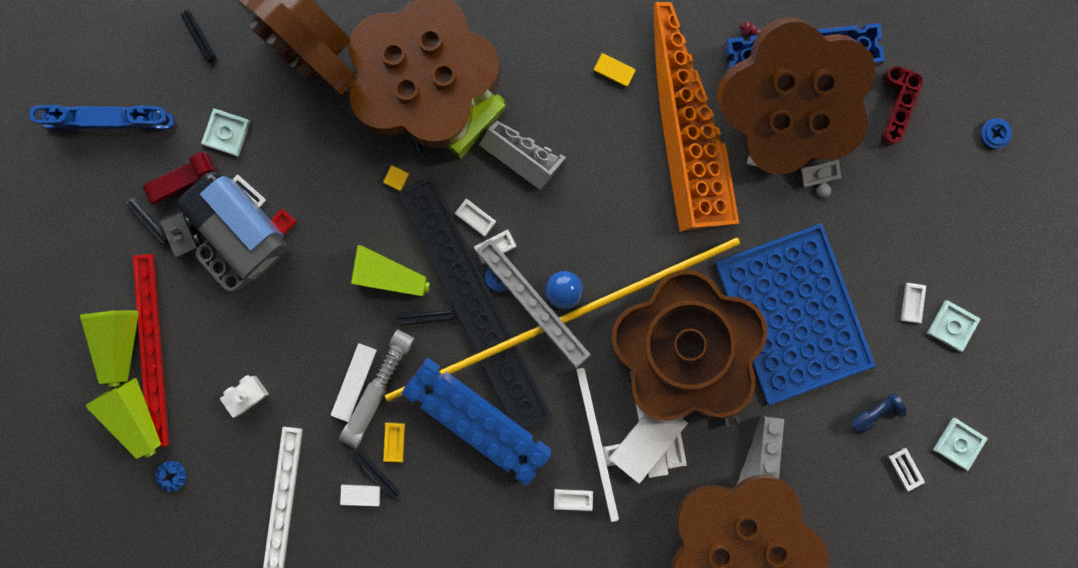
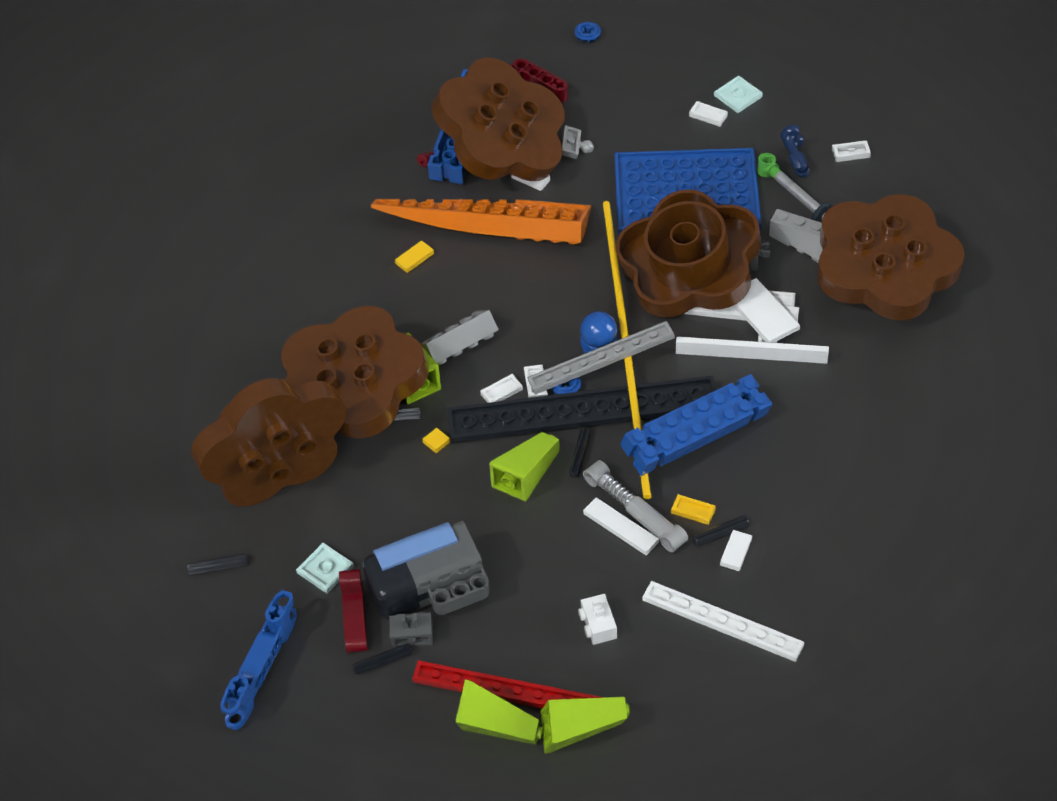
camera: 65 degrees left, 35 degrees down
(178, 480) = (650, 719): blue gear -> none
(573, 500) = (799, 384): white tile -> none
(826, 425) = (769, 168): none -> piece
(960, 444) = (841, 113): light aqua tile -> none

